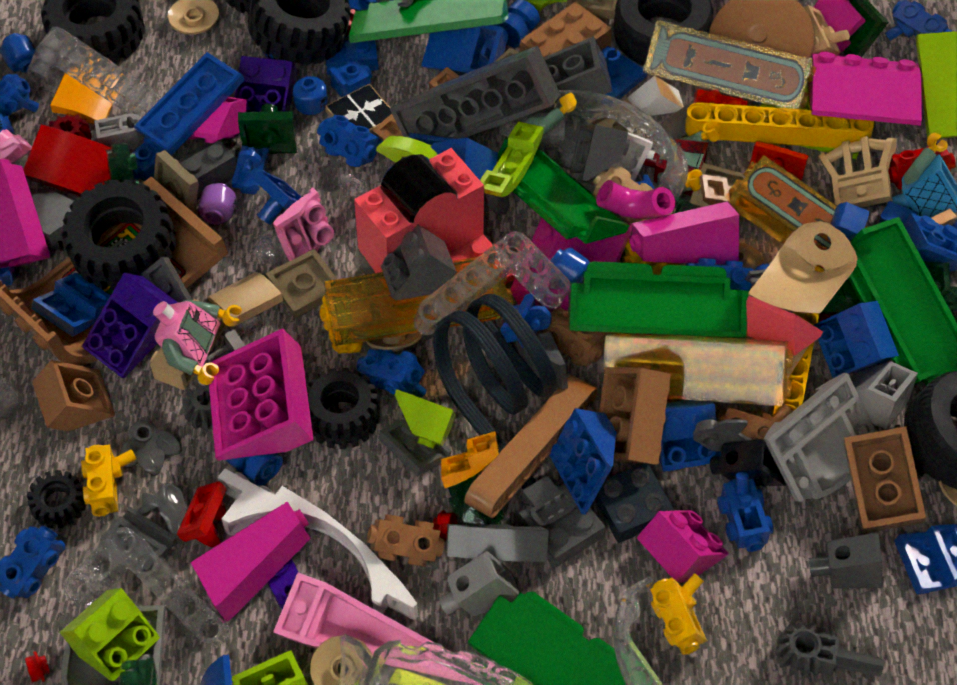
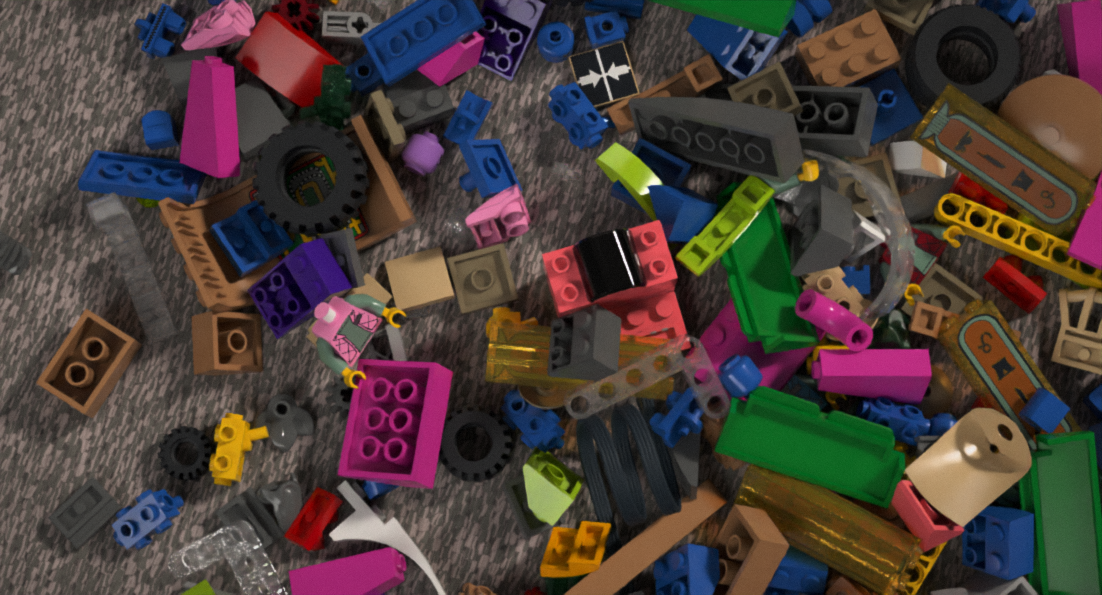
camera: 25 degrees right, 25 degrees up
(268, 130) = (497, 82): dark green tile -> none

